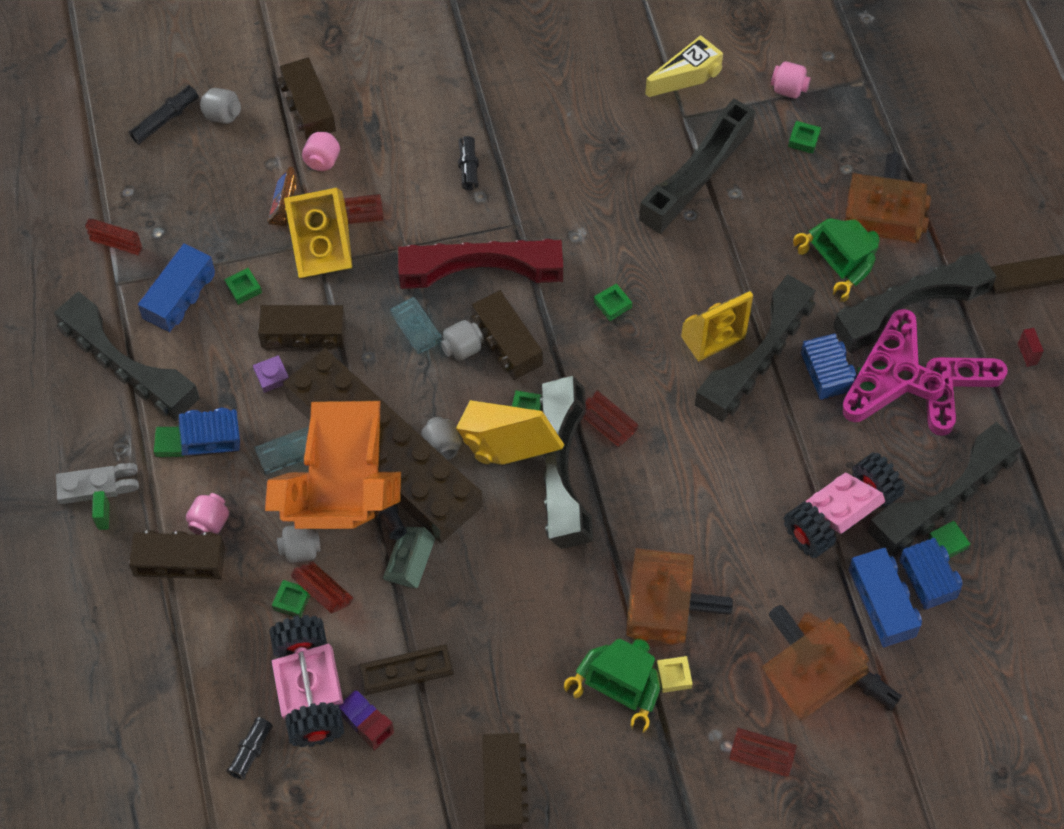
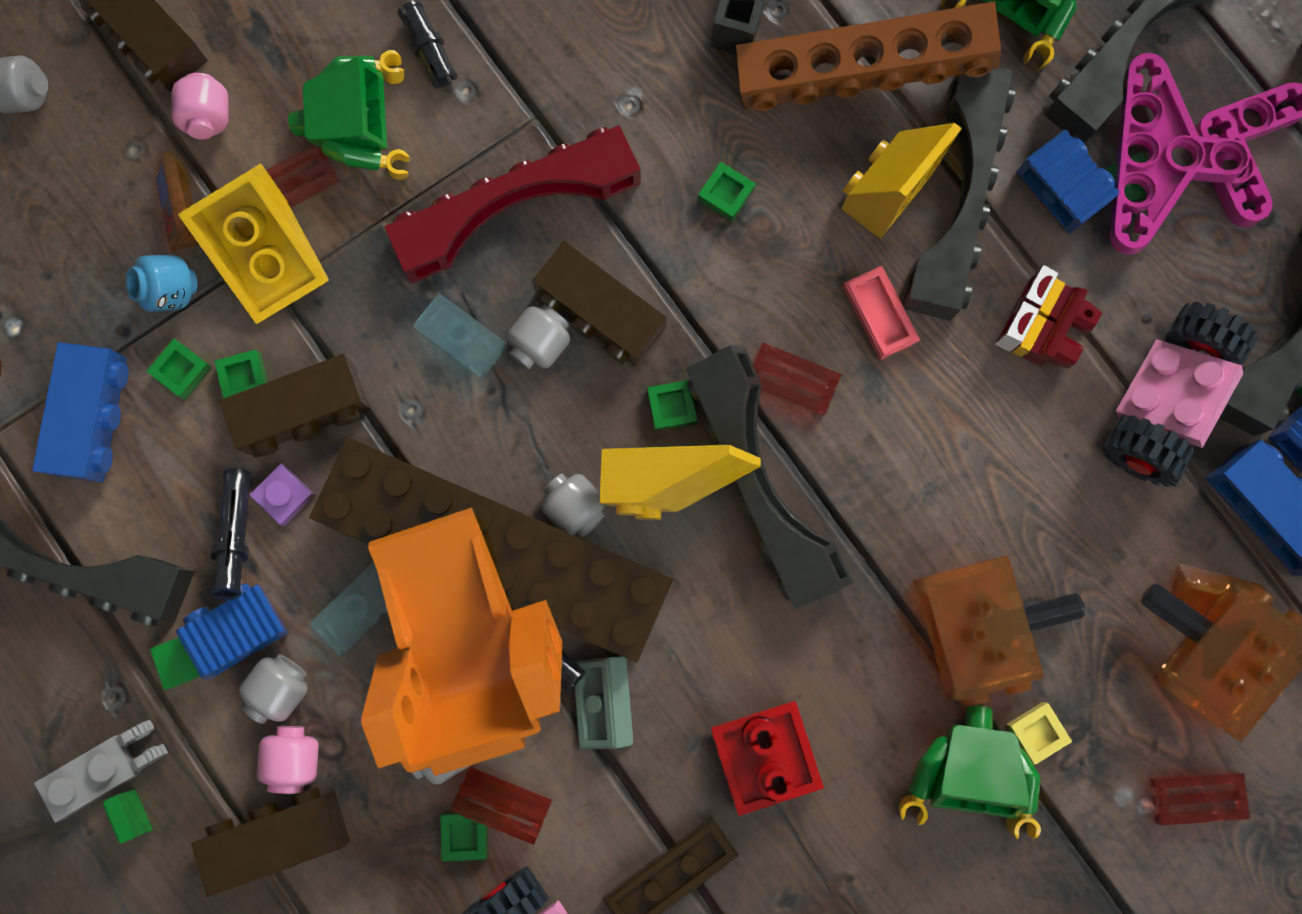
camera: 25 degrees left, 20 degrees up
(217, 473) = (273, 689): none -> light grey head
(230, 384) = (231, 535): none -> black pin
(255, 234) = (161, 283): none -> dark azure head
(278, 296) = (240, 372): none -> green tile
(405, 181) = (347, 112): none -> green torso
(495, 620) = (766, 757): none -> red plate
(679, 401) = (880, 313): none -> coral tile
(707, 250) = (927, 33): none -> dark orange brick
(778, 436) = (1043, 318): none -> dark red hips

